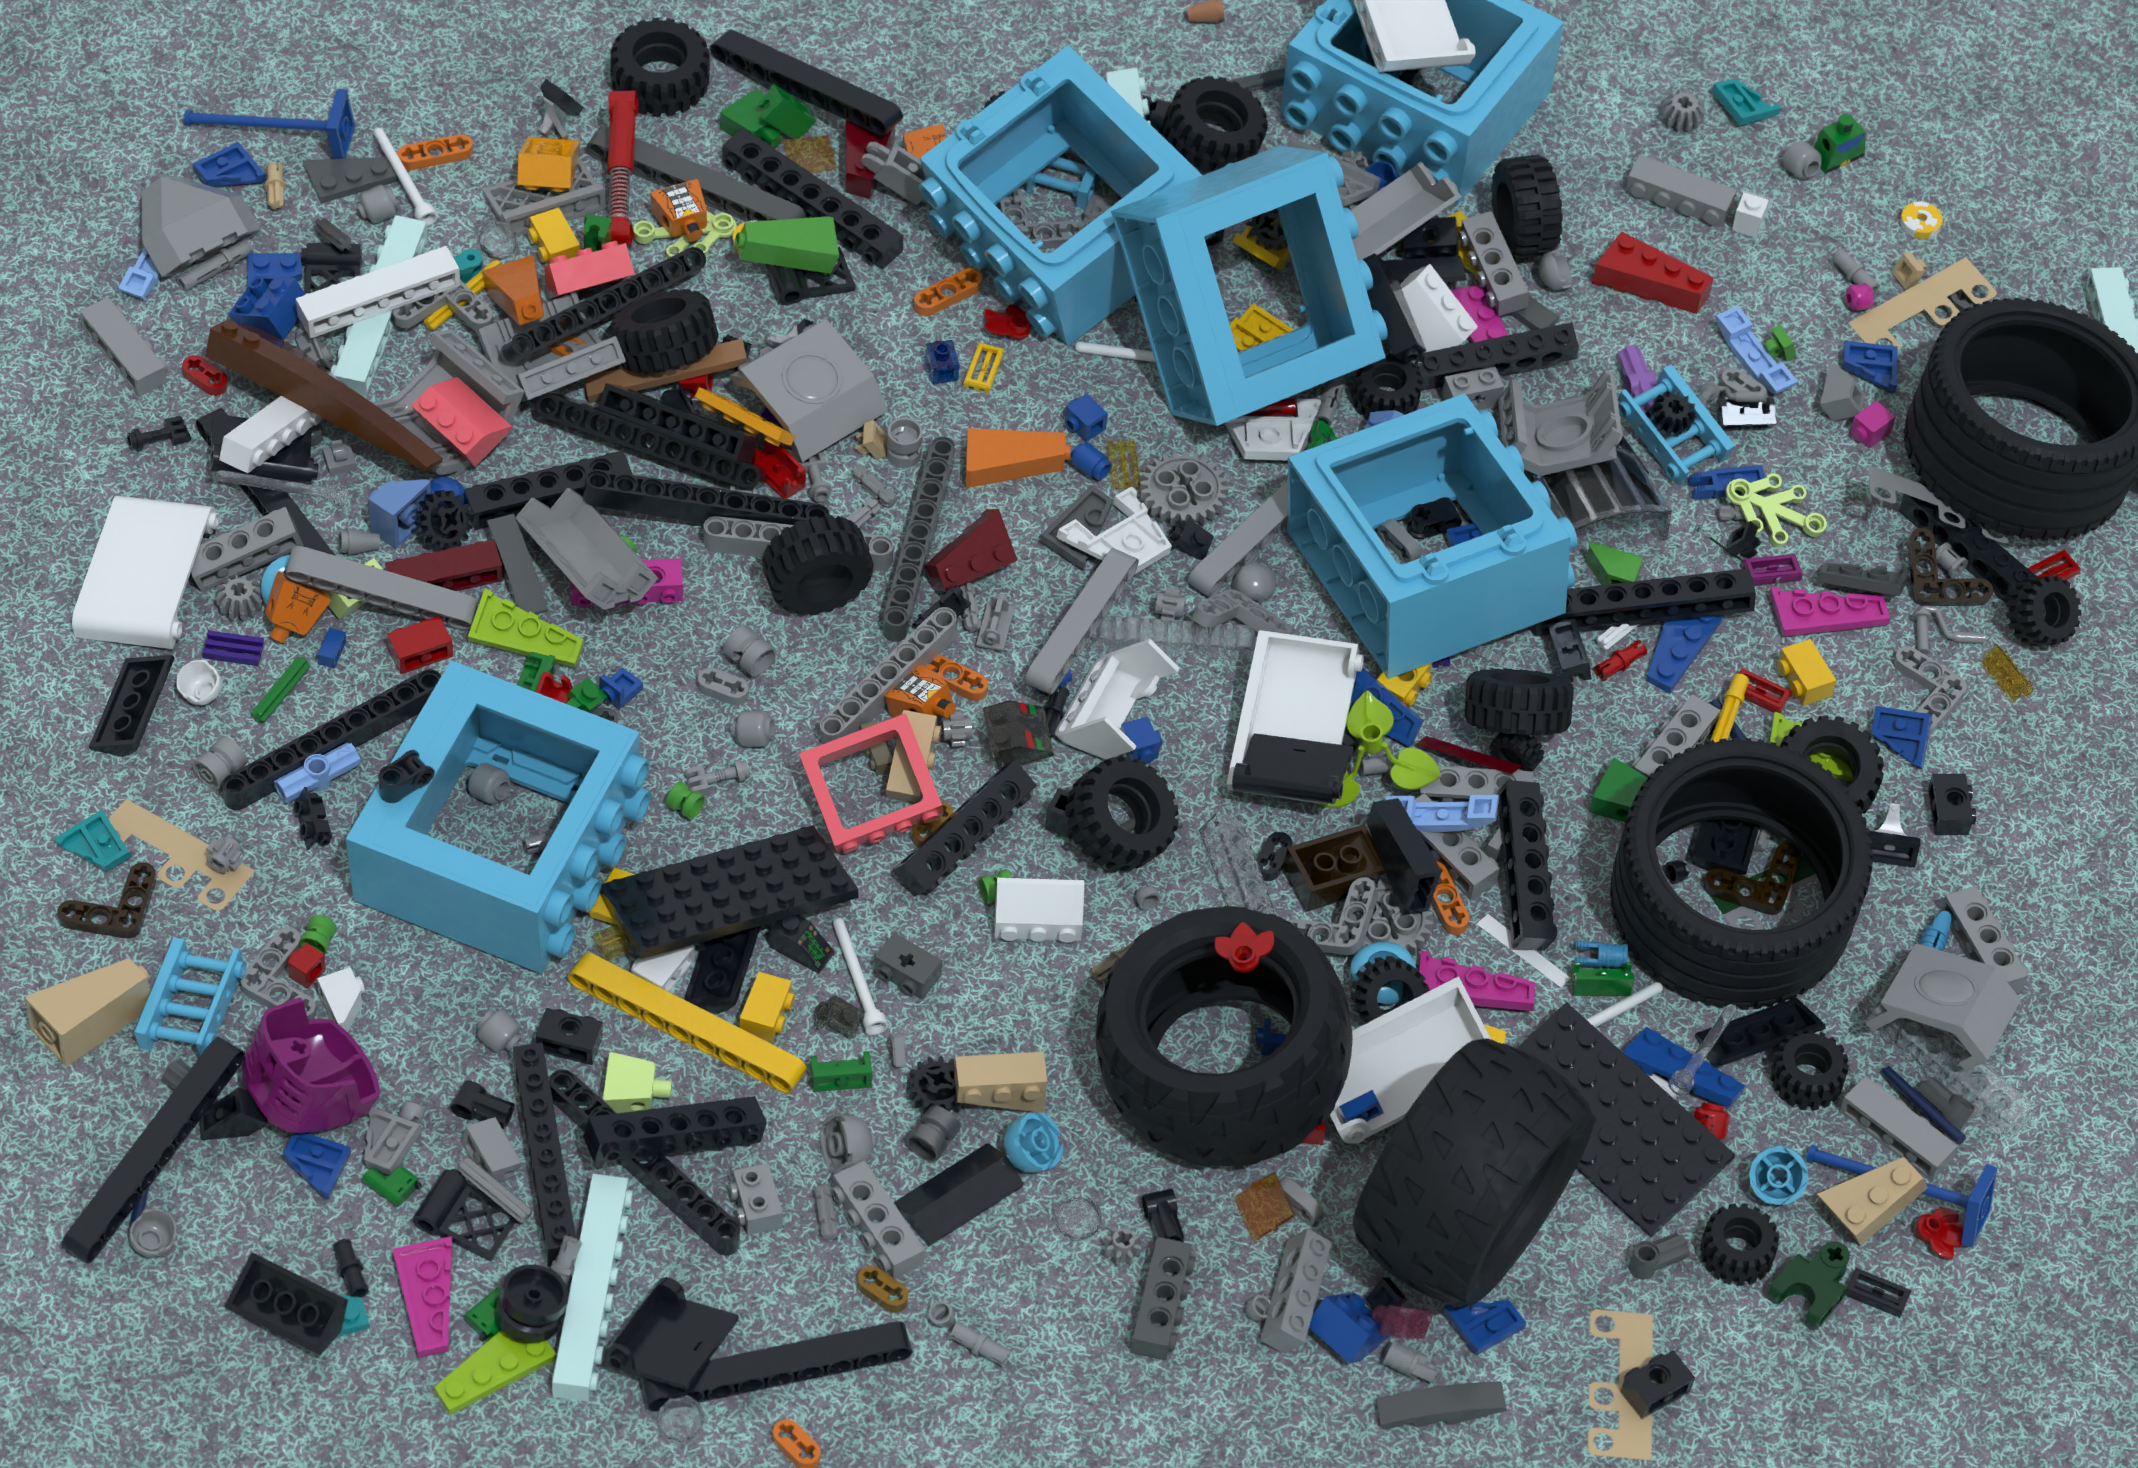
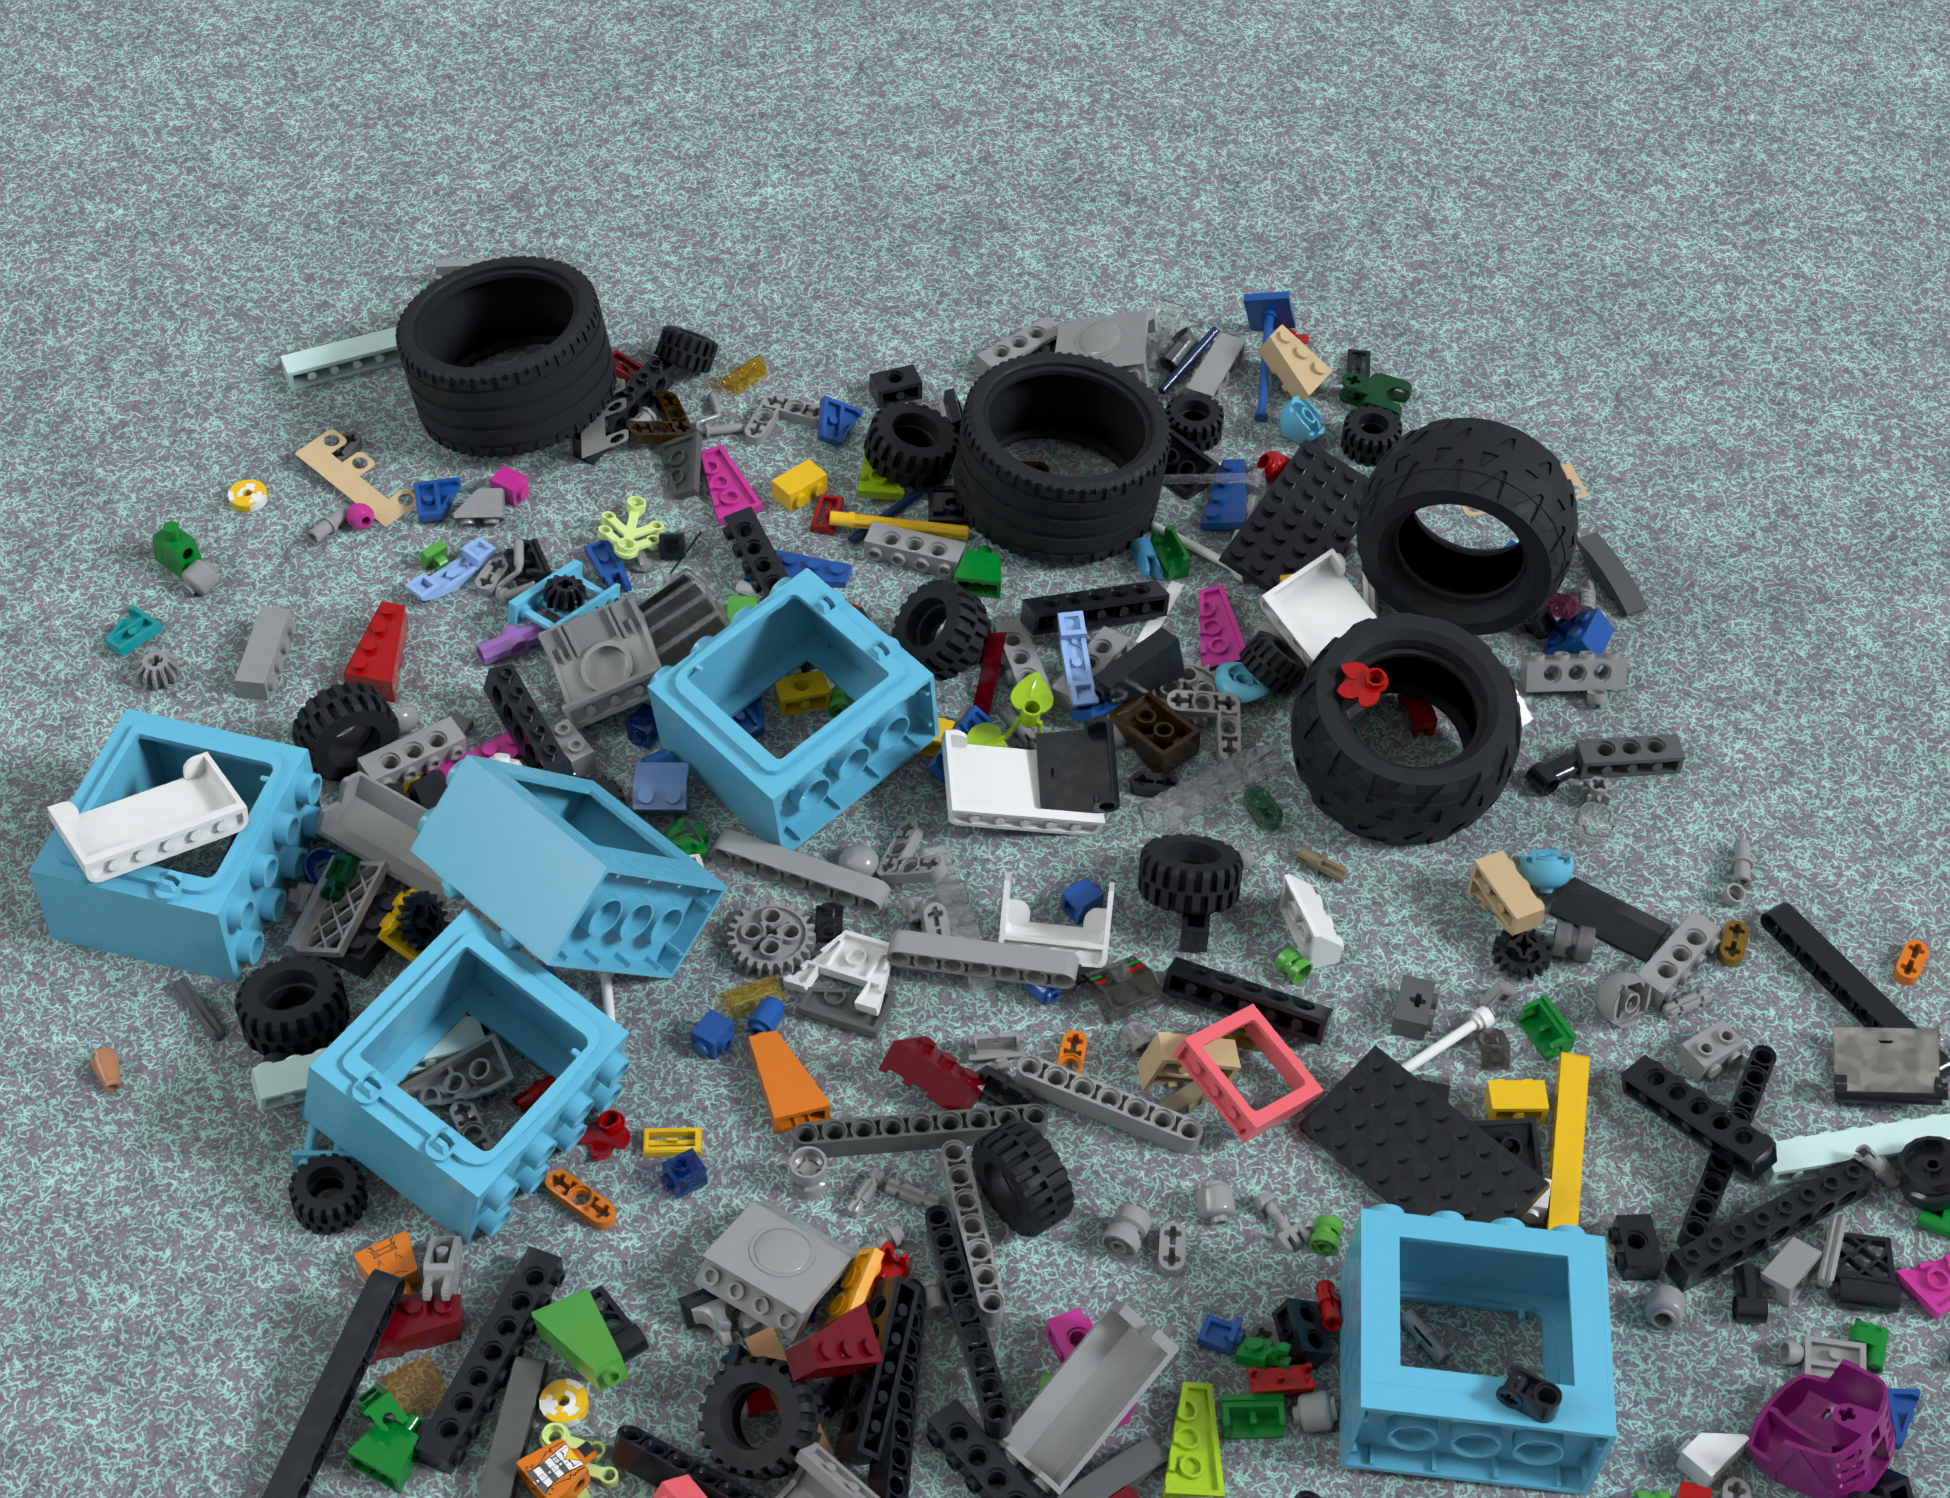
camera: 105 degrees left, 5 degrees down
(632, 1084) = (1658, 1181): yellowish green torso -> none
(687, 367) = (837, 1348): none -> dark red wedge
(872, 440) = (811, 1205): tan tile -> none
(921, 693) = (1119, 1065): orange torso -> none
(1147, 606) = (942, 921): none -> light grey beam
(1354, 175) = (339, 874): none -> dark green plate
(1751, 214) = (275, 595): white slope -> none
(1769, 575) = (699, 538): magenta tile -> none
(1909, 270) = (318, 489): tan tile -> none

